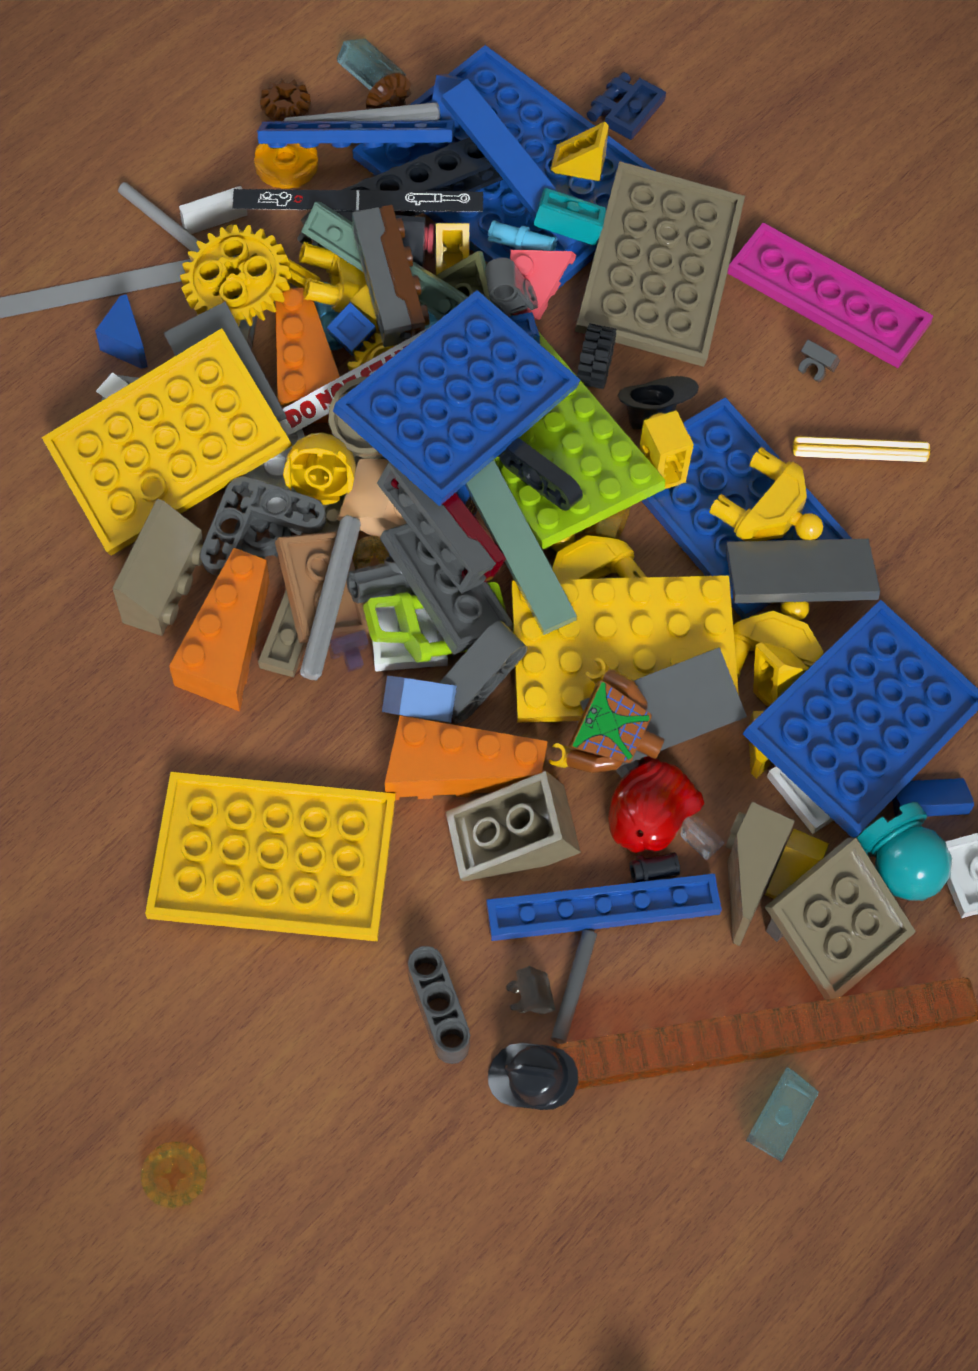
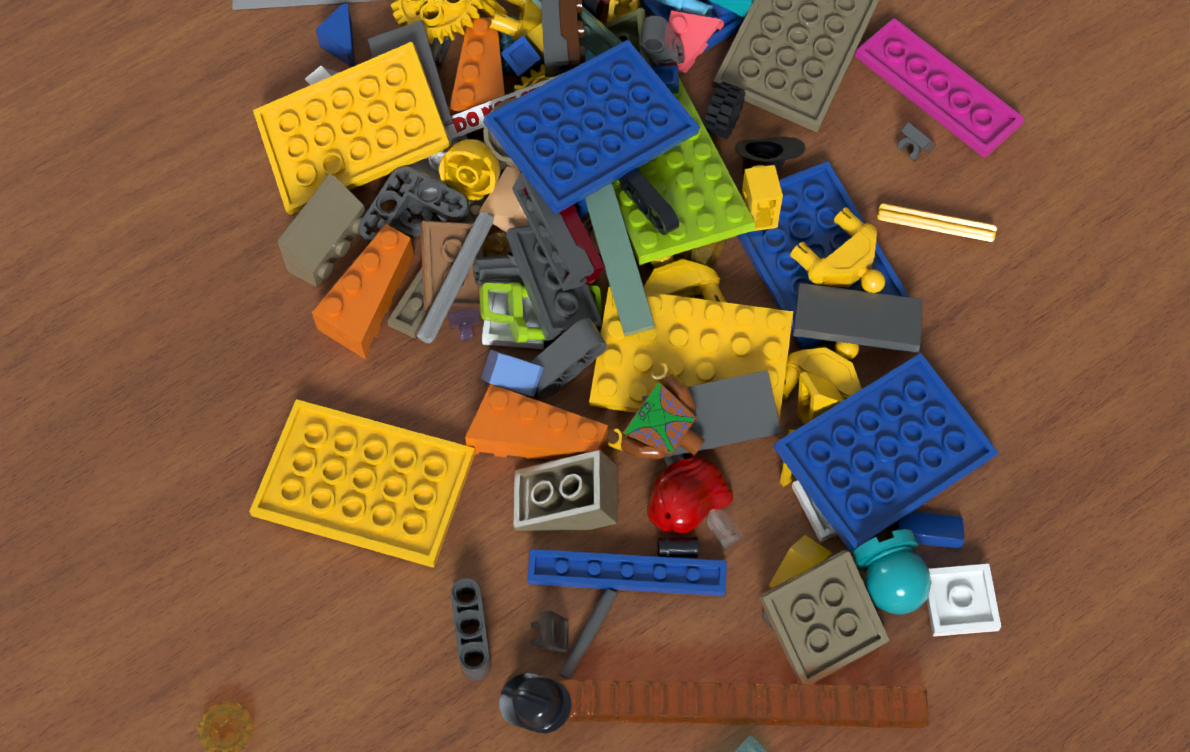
camera: 15 degrees right, 0 degrees up
(755, 849) = (765, 546): dark tan slope -> none

